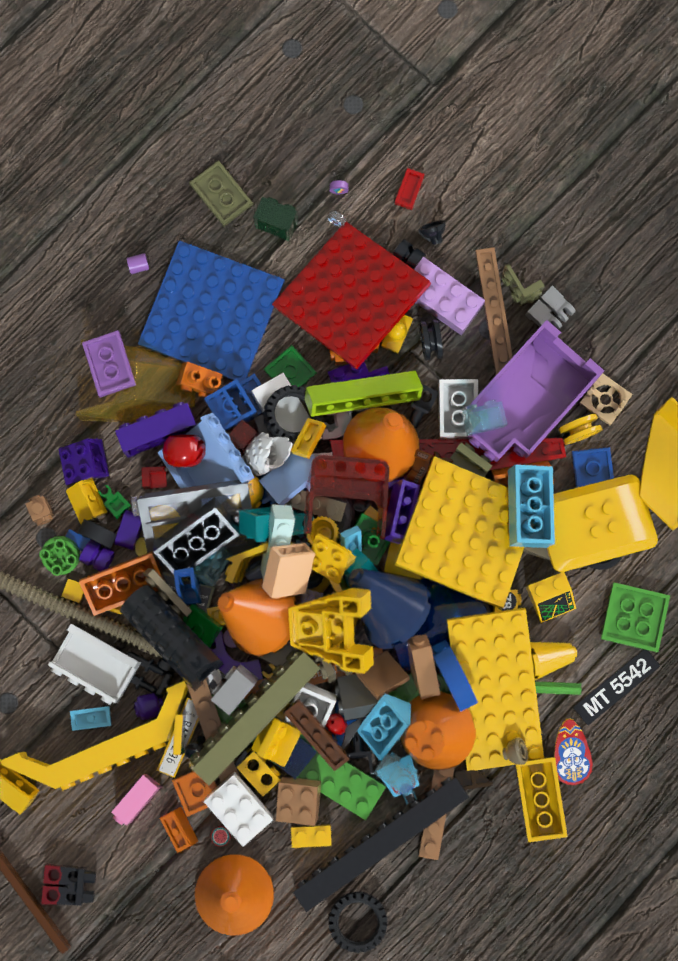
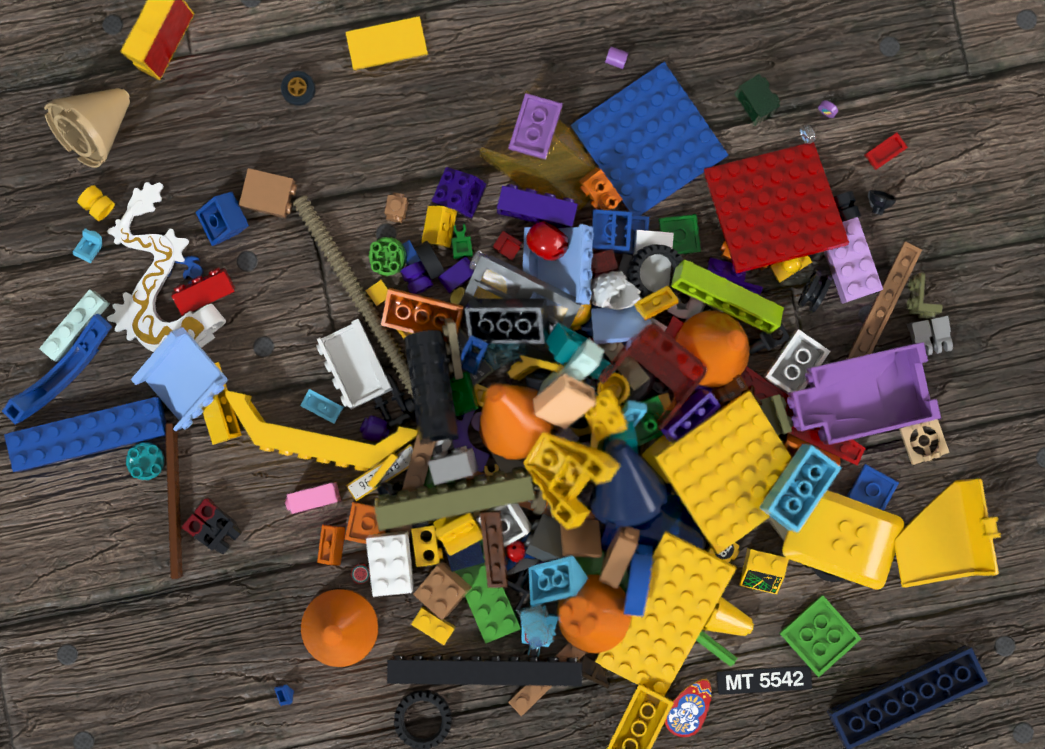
camera: 30 degrees right, 5 degrees up
(221, 193) = (726, 46): olive tile -> none
(484, 418) = (812, 388): clear light blue brick -> none
(516, 751) = (645, 676): dark tan brick -> none
(580, 429) = (885, 451): yellow wheel -> none

